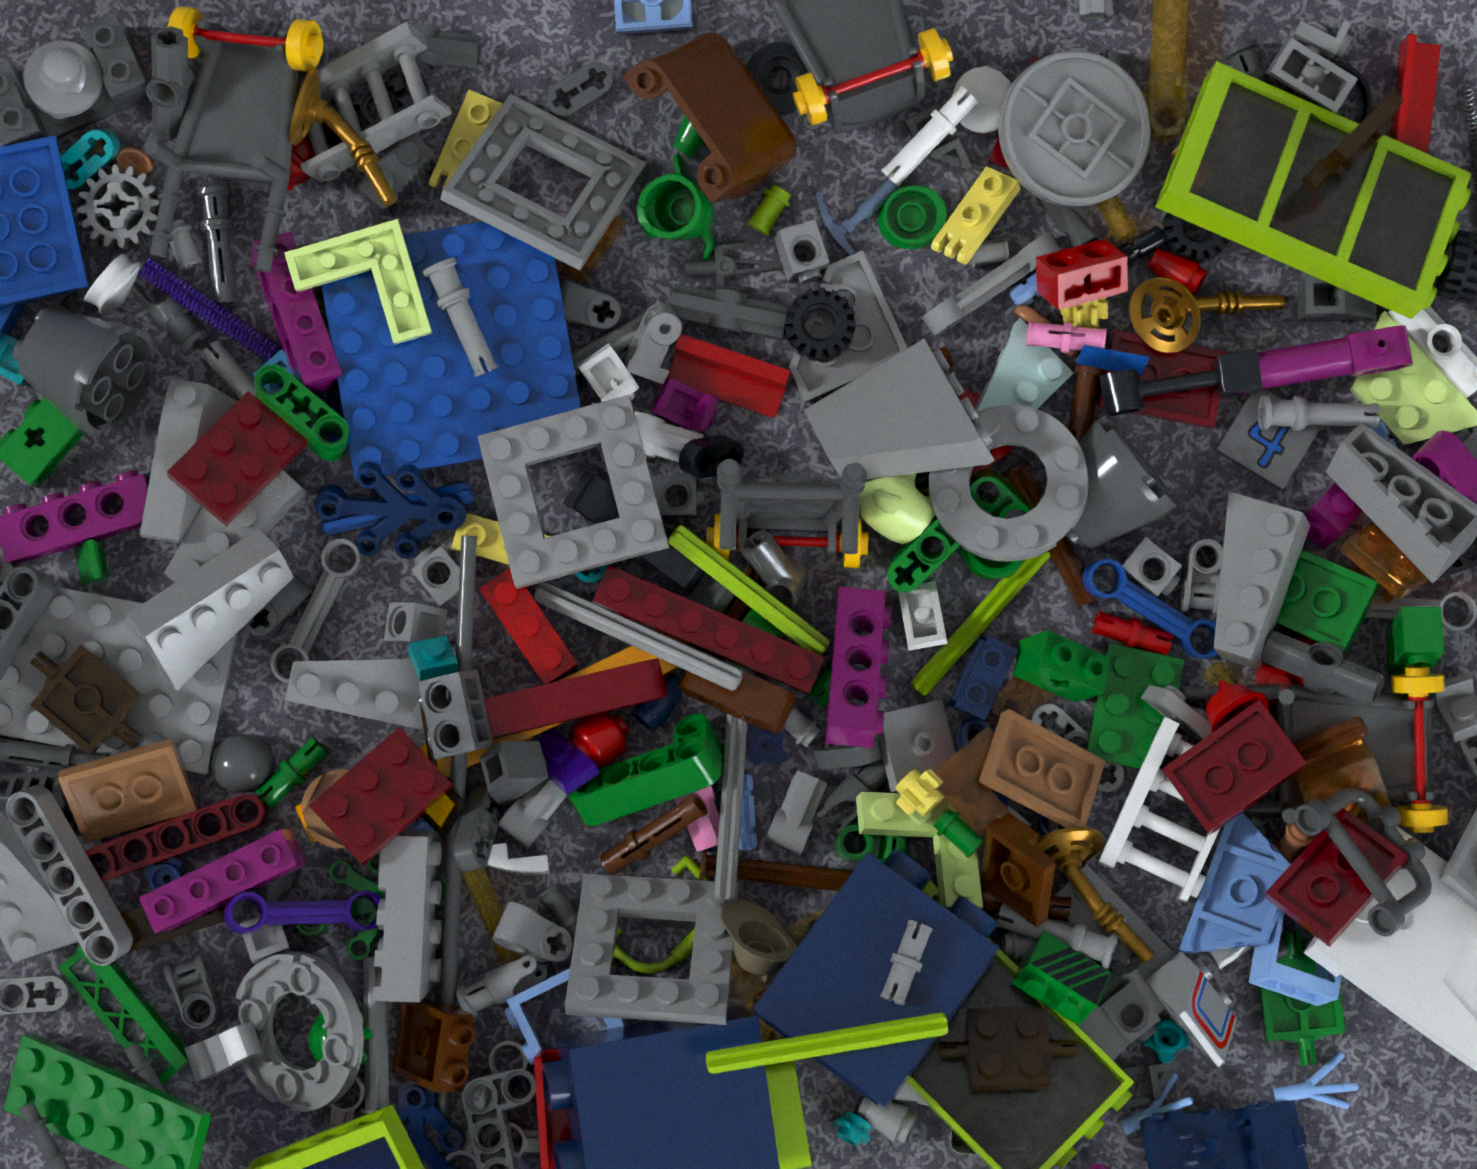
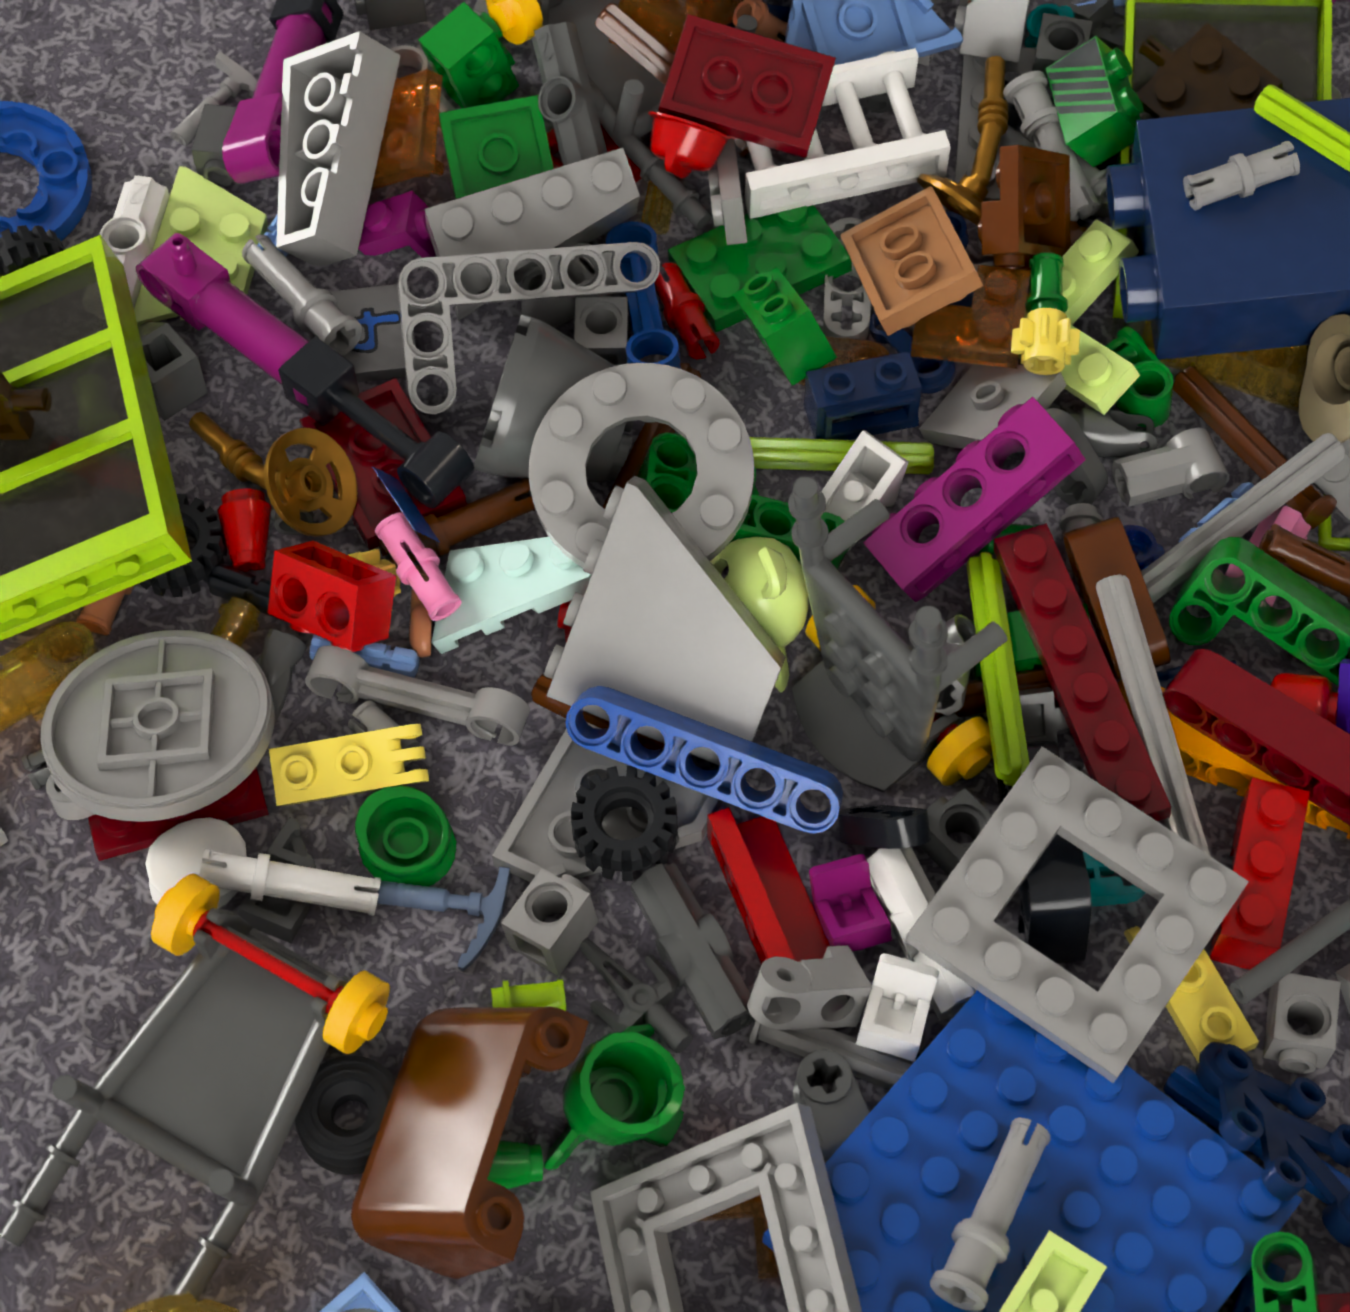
camera: 130 degrees left, 25 degrees down
(818, 389) = (676, 764): none -> blue beam
(1206, 518) = (502, 288): none -> light grey beam

